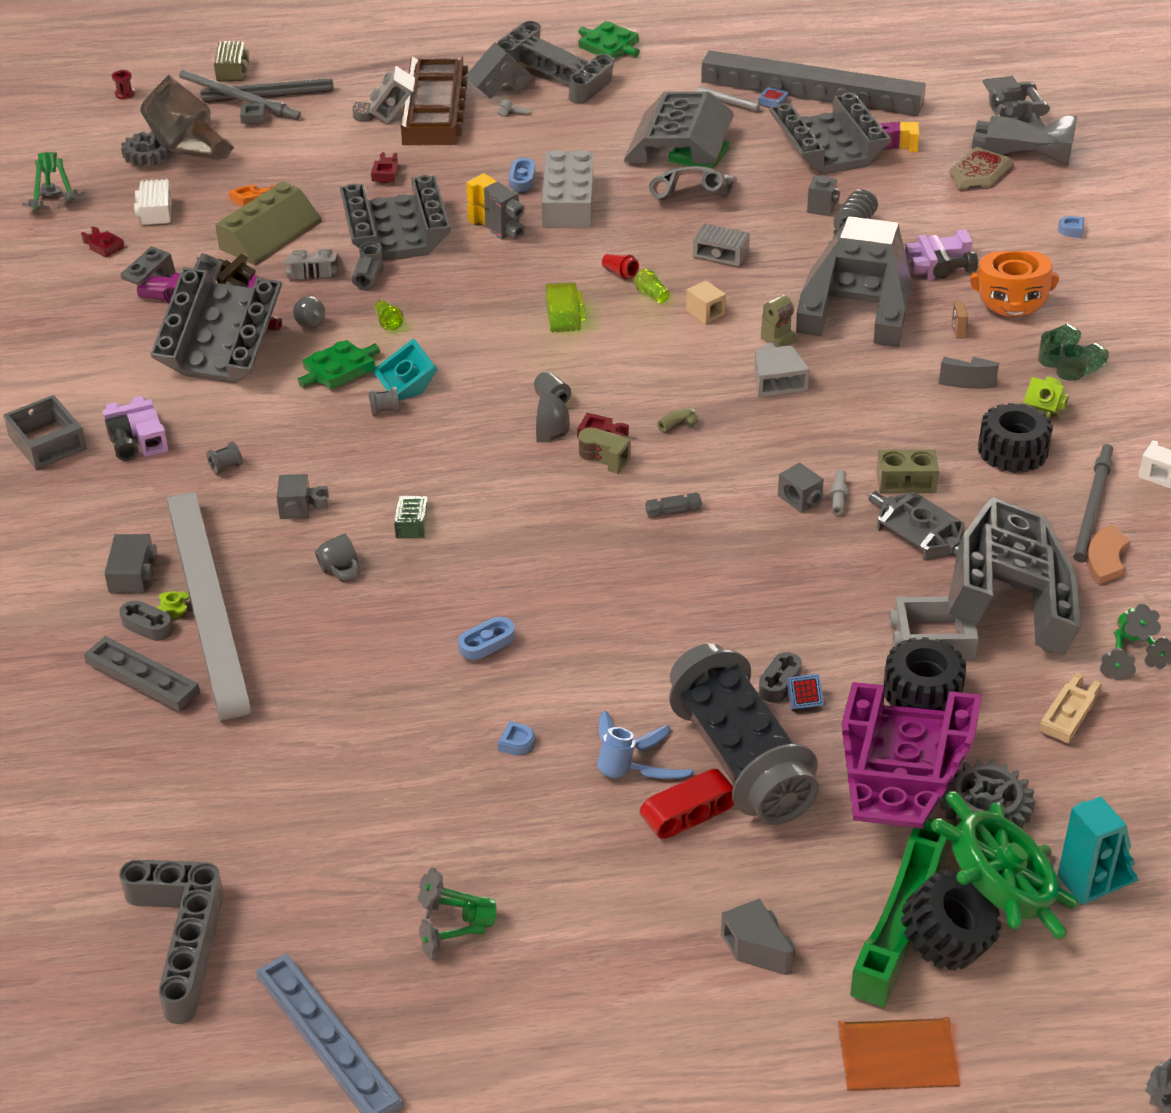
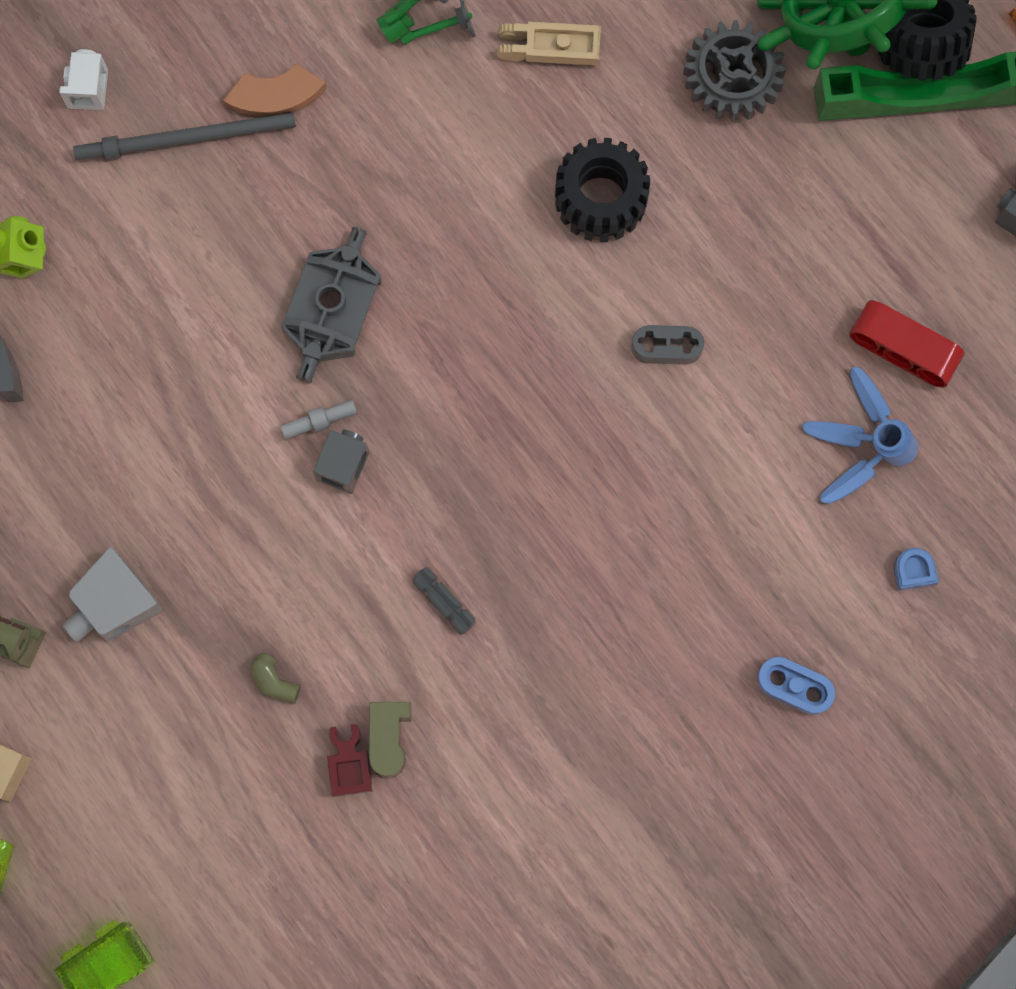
camera: 120 degrees left, 35 degrees up
(336, 555) = (765, 951): dark grey piece -> none
(411, 517) = (666, 896): clear green slope -> none
(551, 417) = (373, 833): dark grey brick -> none
(552, 384) = (300, 874): dark grey brick -> none
(767, 769) = (812, 317): brick -> none
(805, 691) = (682, 304): tile -> none
(903, 755) = (747, 148): magenta wedge -> none
(907, 471) = (249, 351): olive brick -> none
(932, 610) = (491, 185): light grey window -> none
(1015, 437) = (108, 227): black tyre -> none
(1025, 553) = (370, 158): dark grey wedge -> none

